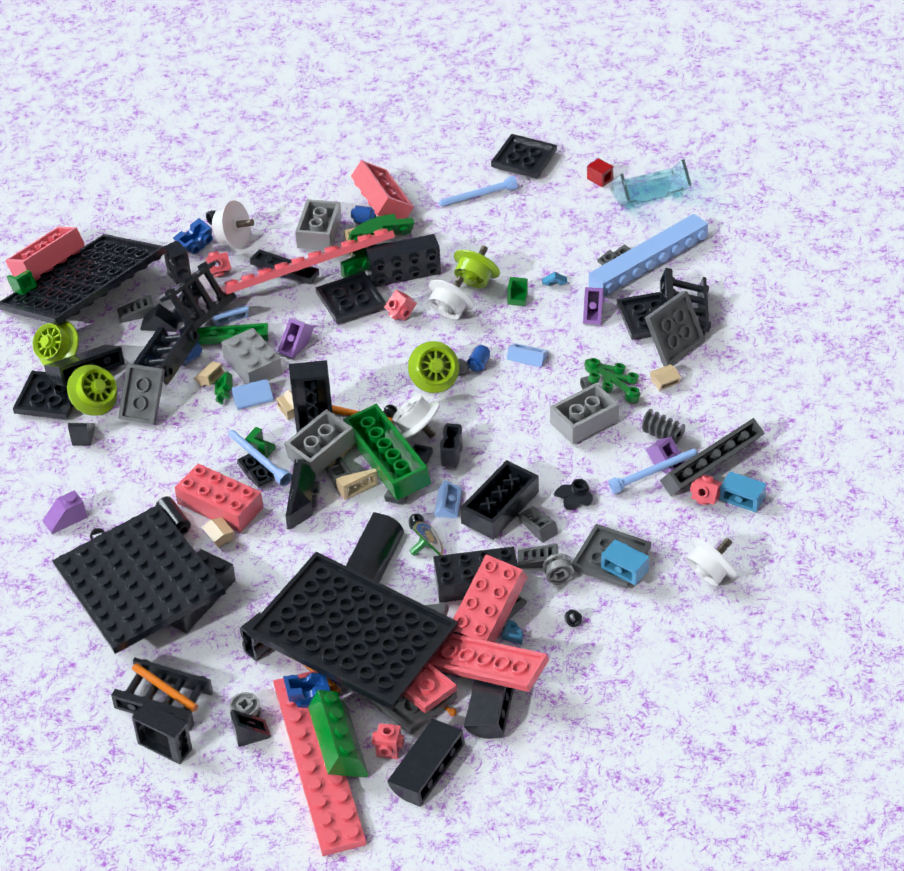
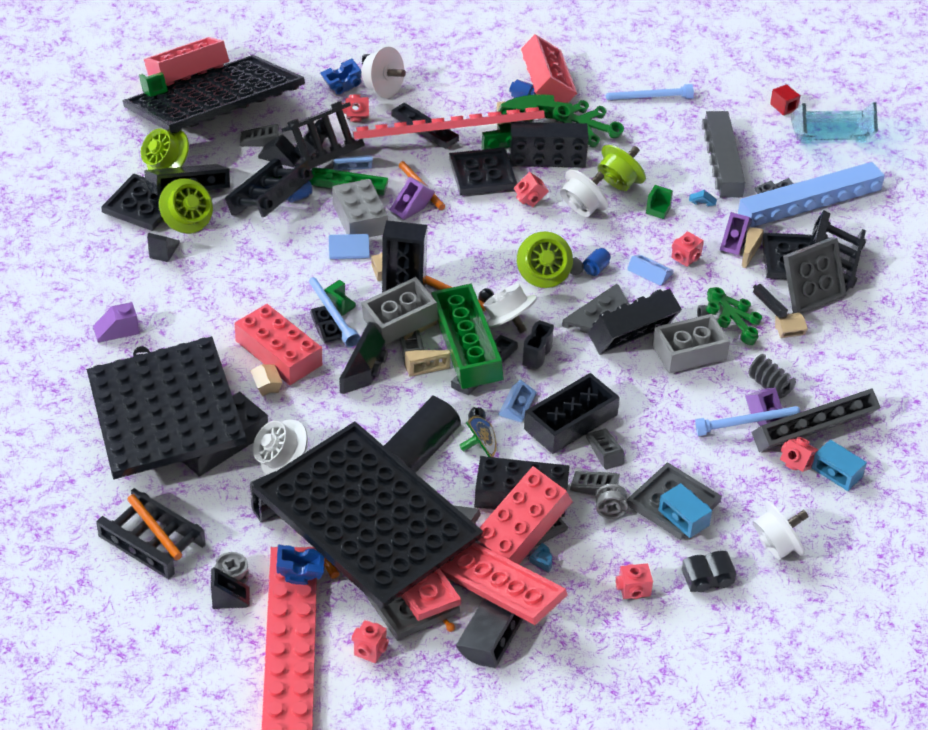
camera: 10 degrees right, 0 degrees up
(141, 394) = (233, 220): dark grey plate -> none
(162, 733) = (134, 574): black window -> none
(174, 513) = (226, 351): black brick -> none
(177, 262) = (315, 95): black brick -> none
(209, 374) = (317, 210): tan piece -> none
(223, 387) = (321, 233): green plate -> none
(253, 588) = (279, 444): none -> white piece
(287, 315) = (410, 173): none -> orange bar
(318, 224) = (472, 90): light grey brick -> none
(336, 735) = (317, 622): green slope -> none
(410, 229) = (565, 114): none -> green plant
(426, 762) = (404, 674): black brick -> none
(498, 404) = (589, 313): none -> dark grey wing
(524, 156) = (709, 66): black plate -> none
(529, 404) = (633, 320): none -> black brick
(555, 328) = (687, 248): none -> coral brick
(561, 234) = (723, 154): none -> dark grey brick
(574, 494) = (655, 426): black plate -> none
(576, 615) = (616, 555): black hinge -> none
(600, 633) = (634, 581): none -> coral brick
(610, 308) = (752, 244): none -> tan slope
(641, 359) = (770, 301): none -> black axle
(659, 610) = (708, 571): none -> black brick

